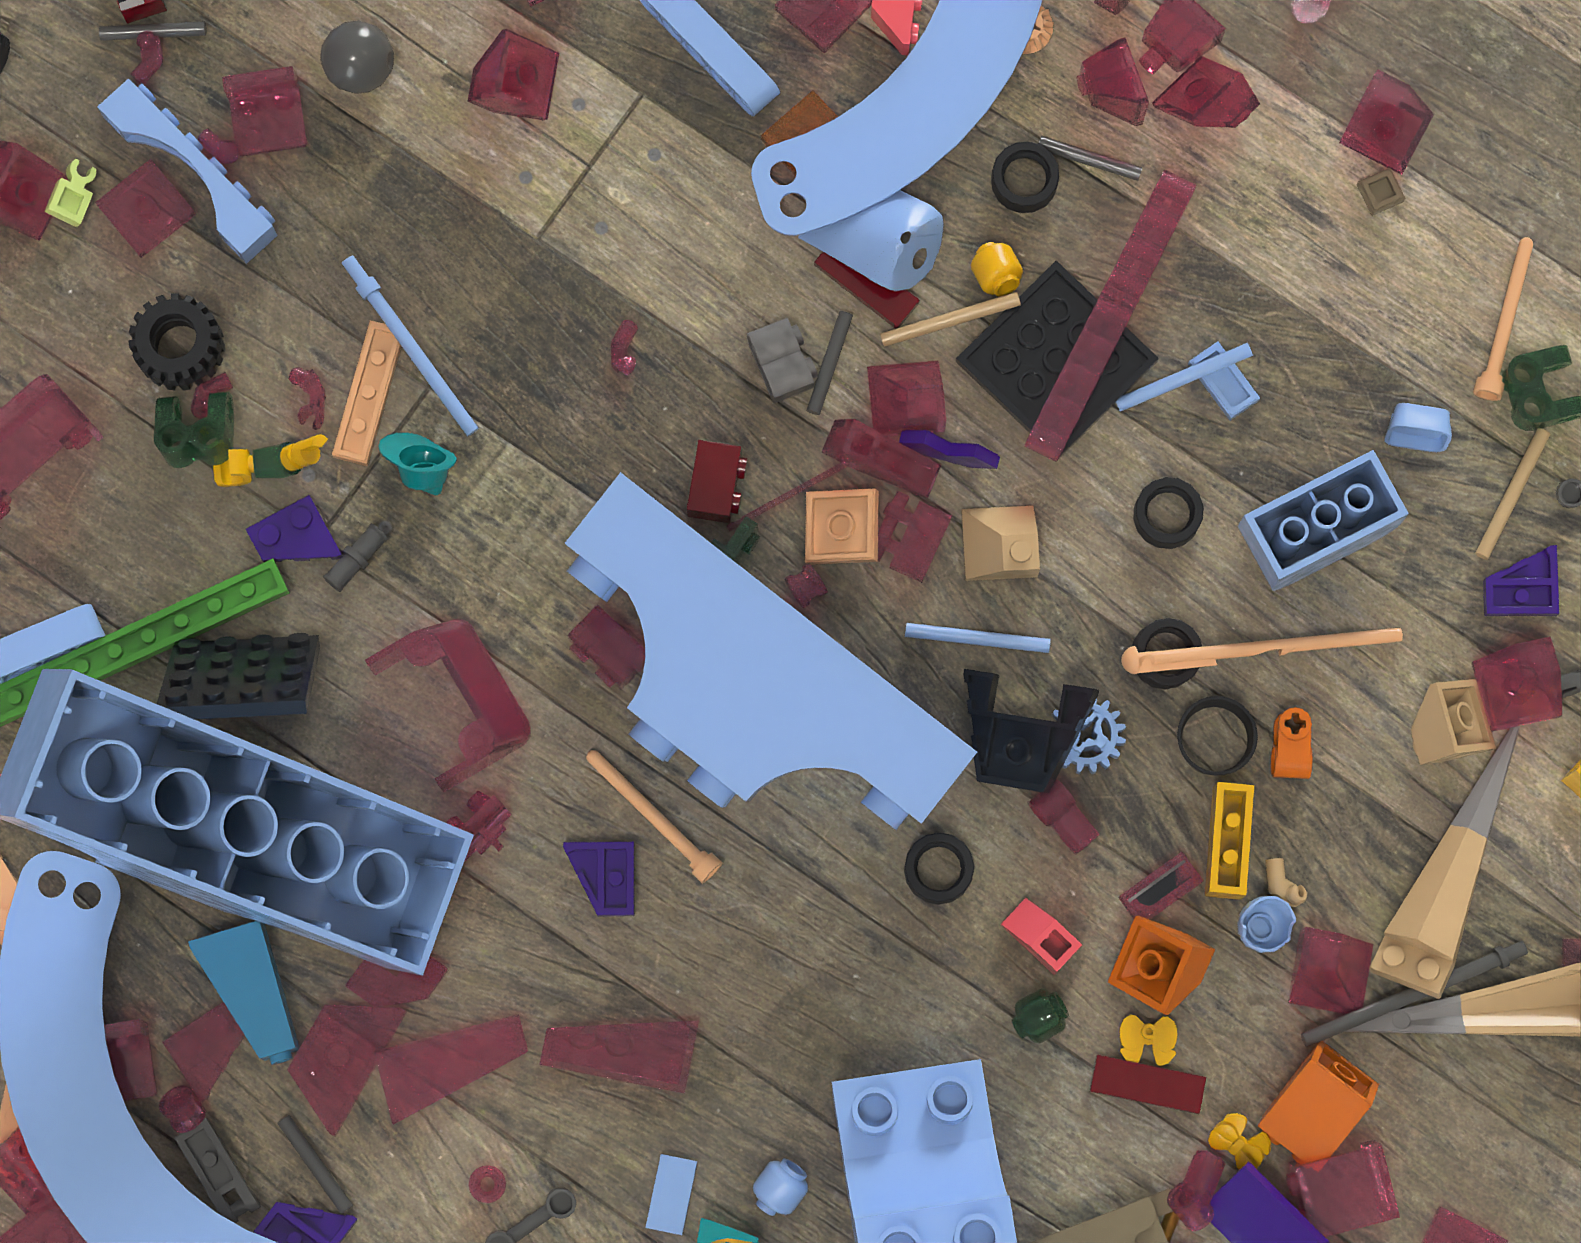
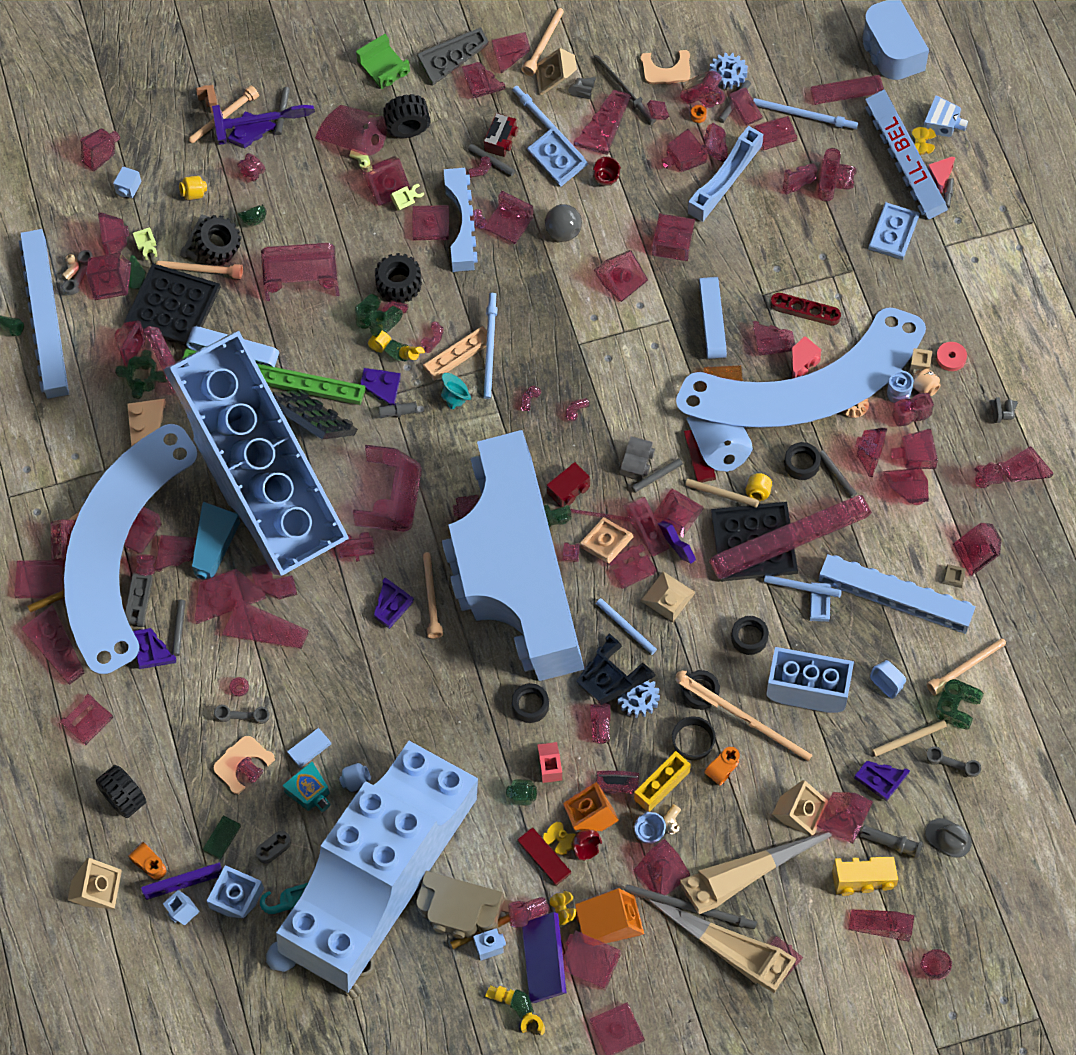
camera: 40 degrees right, 15 degrees down
(533, 383) = (531, 392): none -> clear pink arm
(637, 1053) = (343, 682): clear pink wing -> none
(1196, 1021) = (586, 844): none -> dark red hair
(1325, 284) = (897, 593): none -> light blue brick

